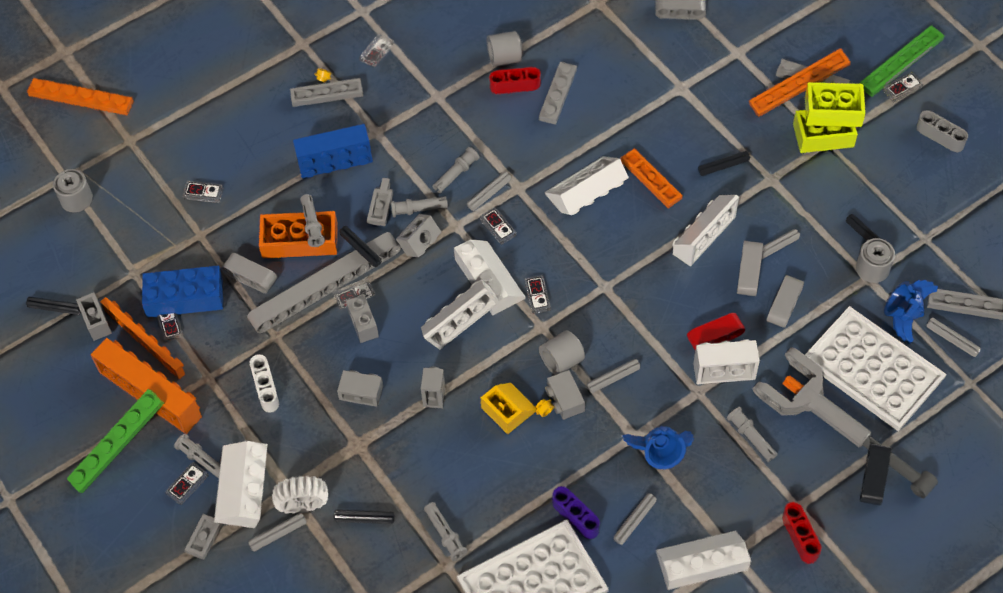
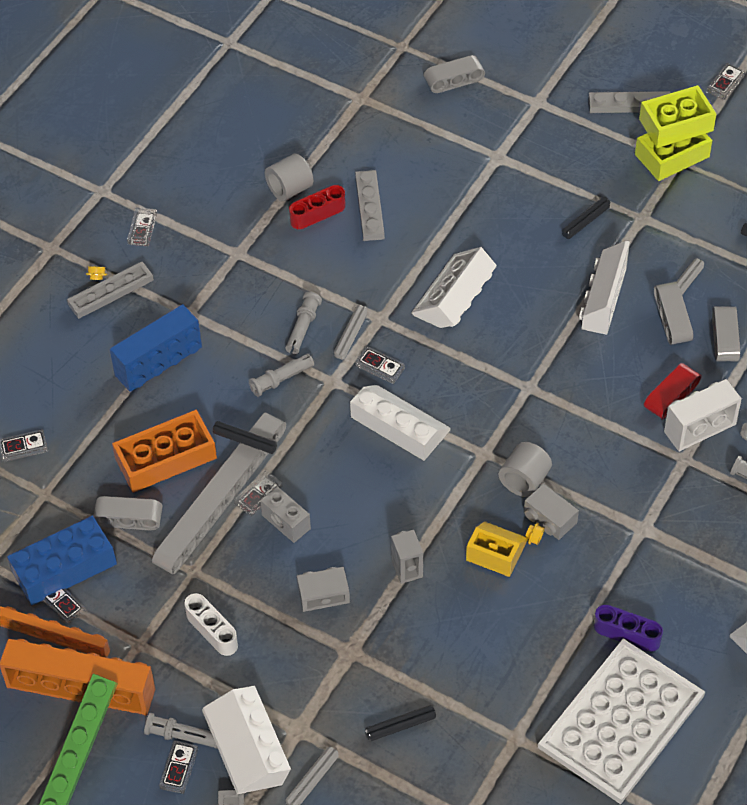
camera: 25 degrees left, 5 degrees down
(300, 494) = (321, 725): white gear -> none
(312, 227) = (183, 433): light grey pin -> none
(380, 204) = (238, 387): light grey hinge -> none
(418, 235) = (301, 404): light grey brick -> none
(449, 539) = (507, 708): light grey pin -> none
(459, 314) = (396, 467): white slope -> none
(537, 294) = (462, 420): tile -> none
(613, 376) = (589, 474): light grey axle -> none
(634, 519) = (691, 611): light grey axle -> none
(651, 178) = (520, 259): orange plate -> none
(662, 446) = (683, 524): blue helmet -> none
(798, 83) = (622, 110): orange plate -> none
(901, 60) = (713, 51): bright green plate -> none

